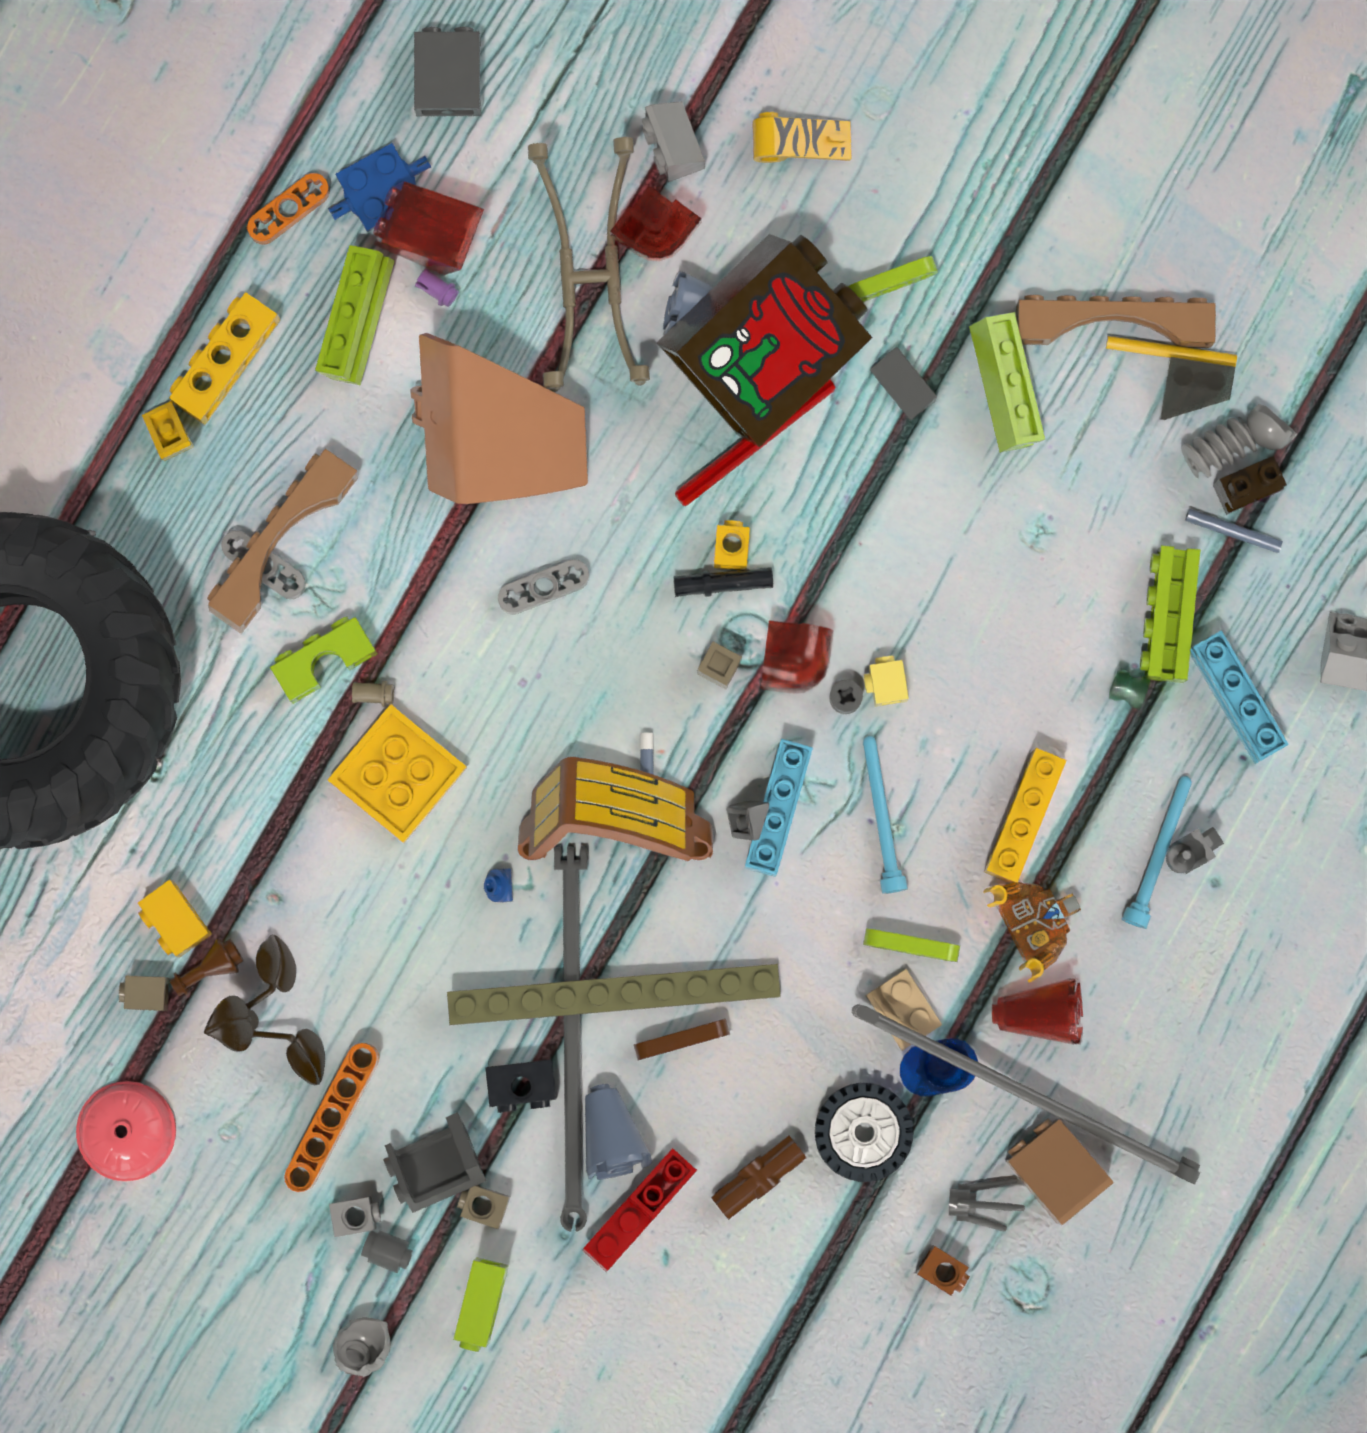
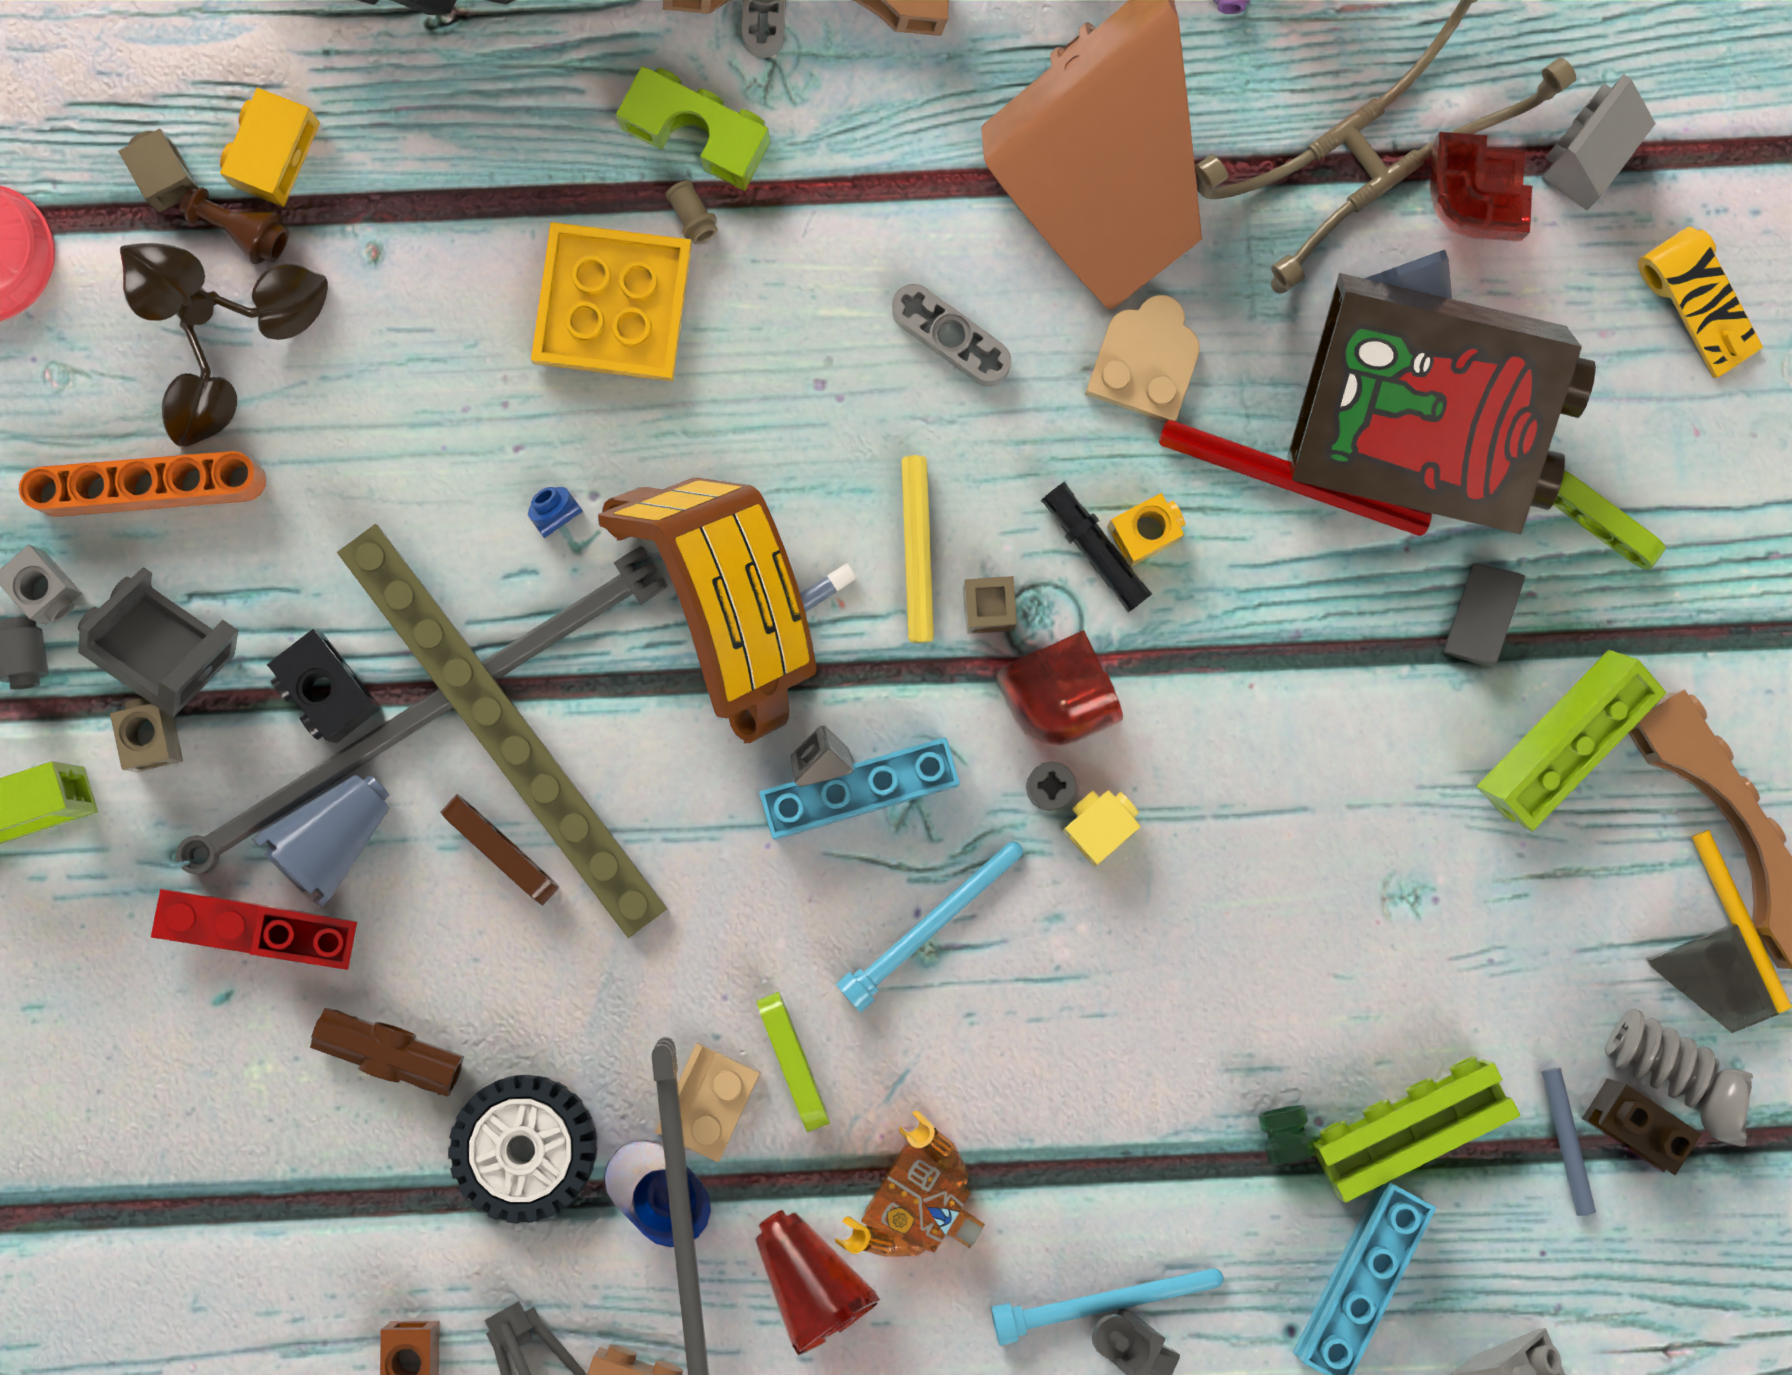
camera: 55 degrees right, 0 degrees up
(630, 482) = (1146, 360): none -> tan plate
(658, 686) = (917, 549): none -> light yellow axle
(1025, 816) = (1044, 1103): yellow brick -> none

